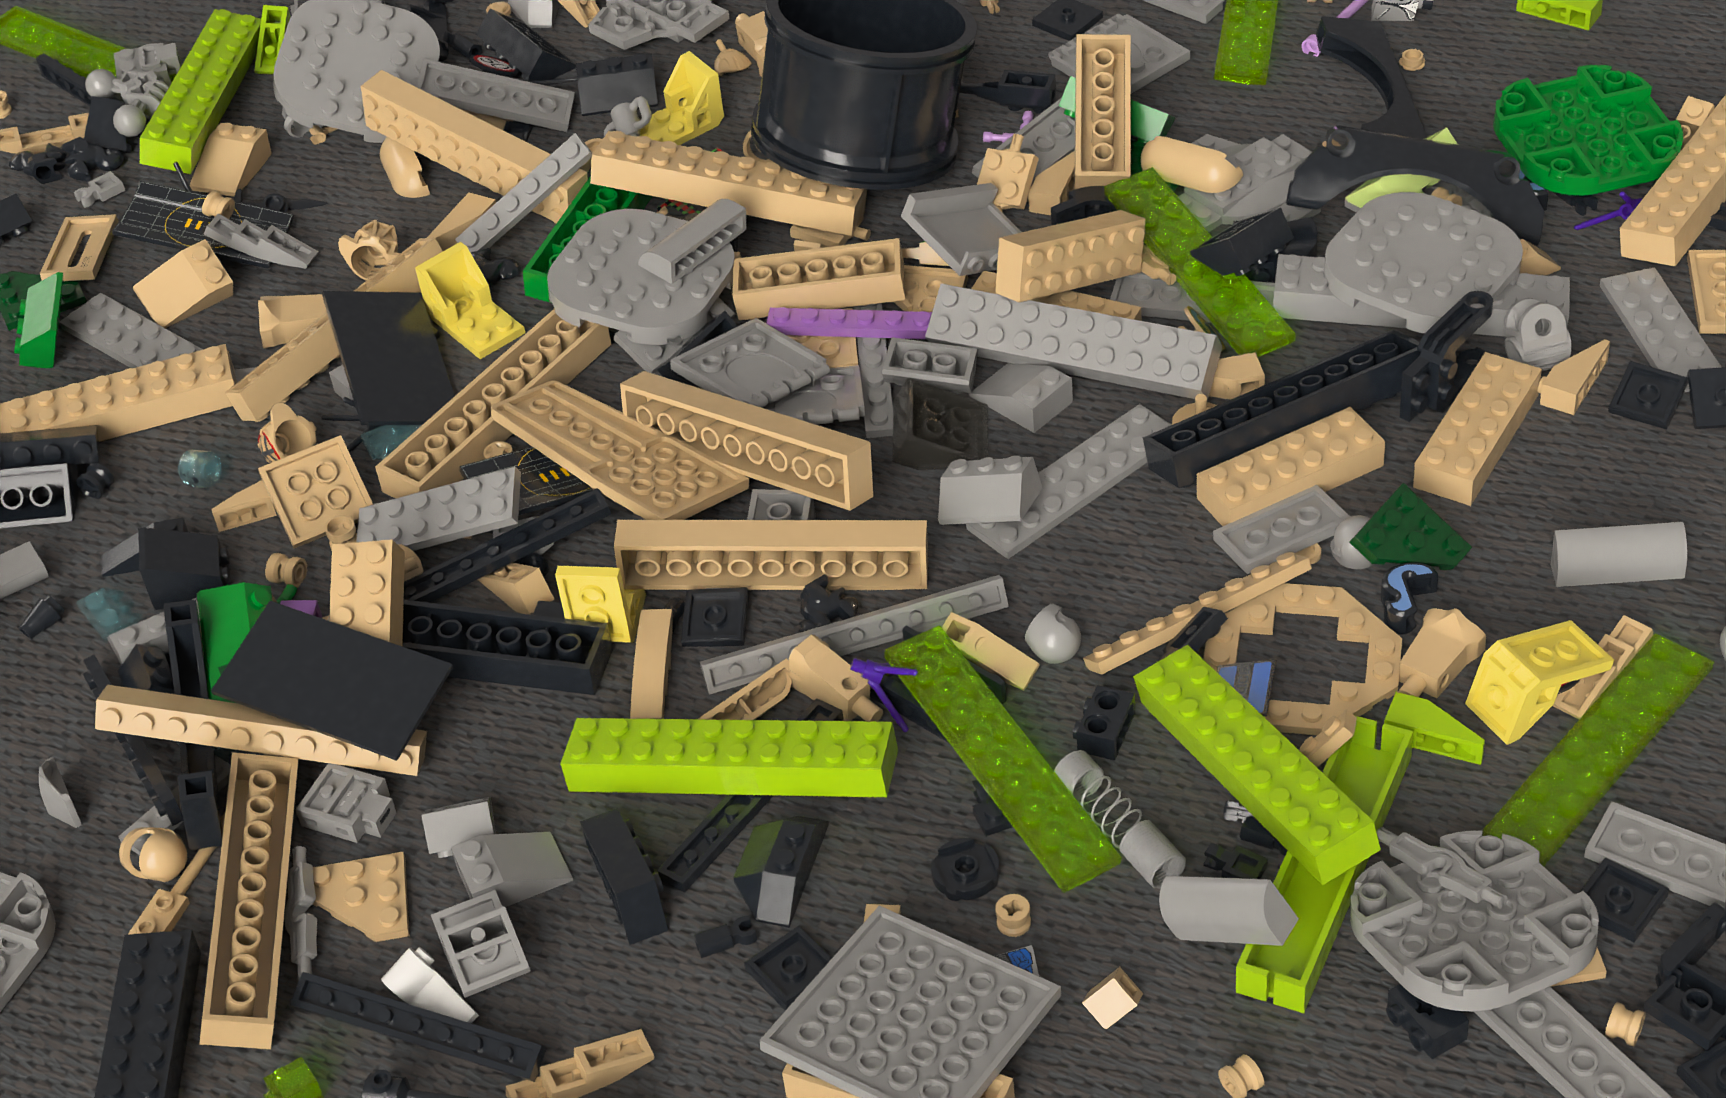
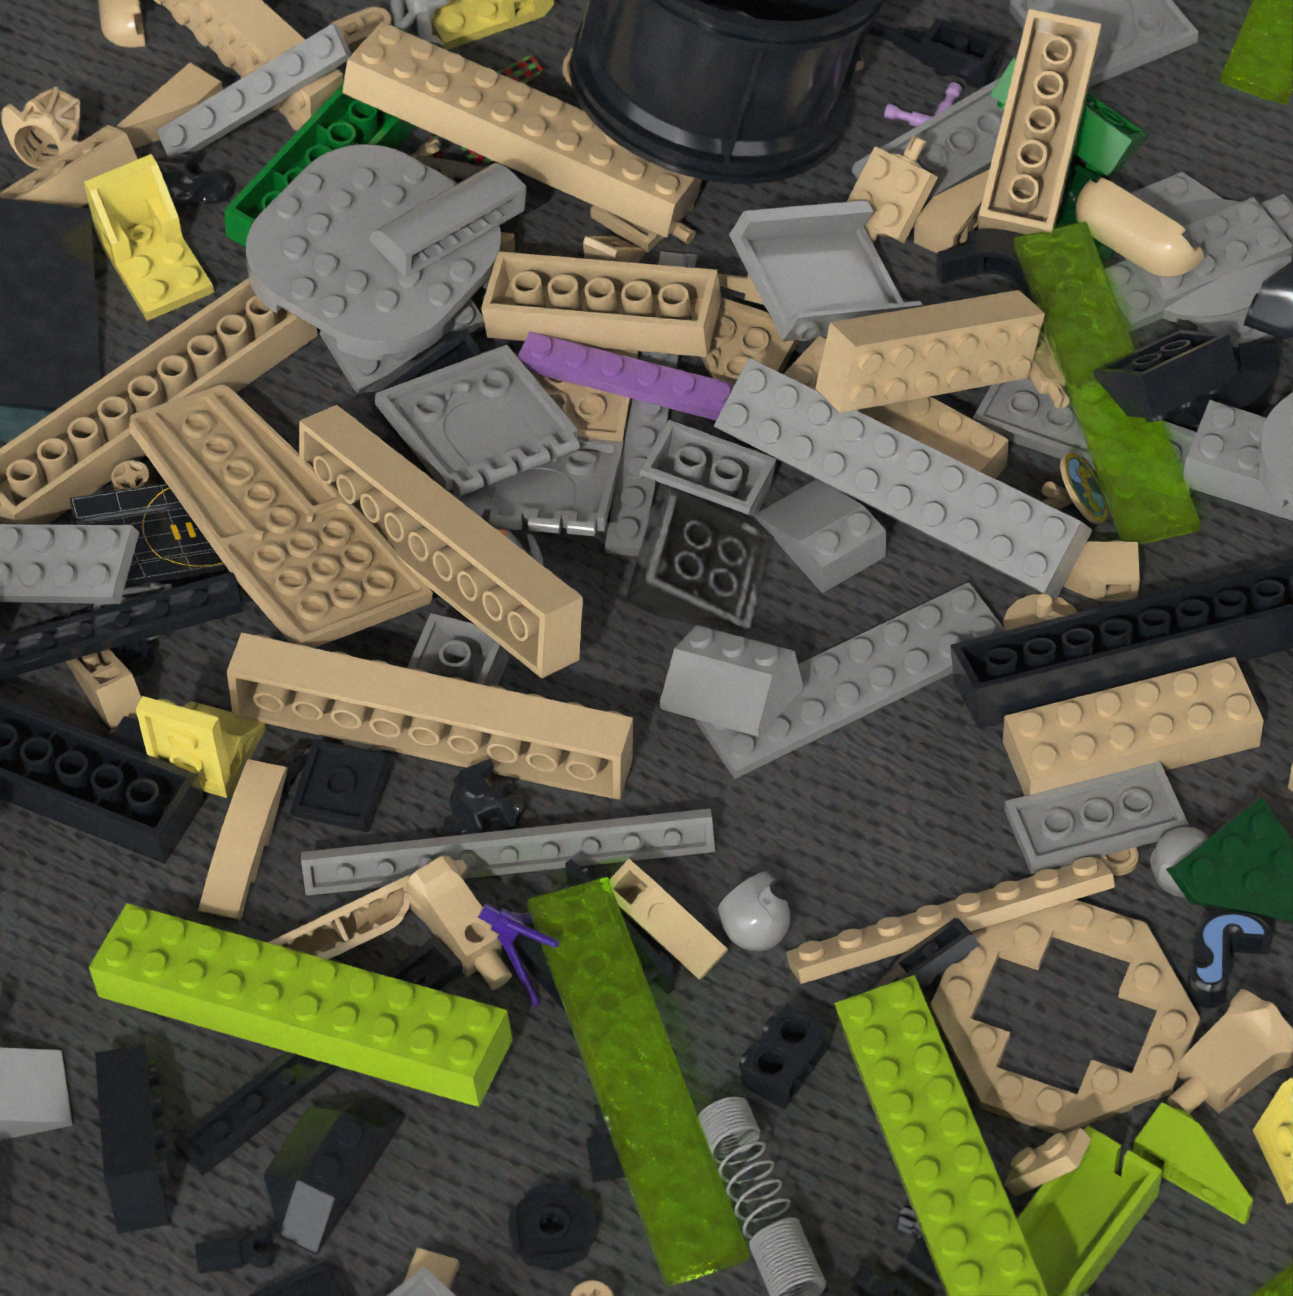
camera: 10 degrees right, 10 degrees up
(1252, 681) = (977, 1048): piece -> none

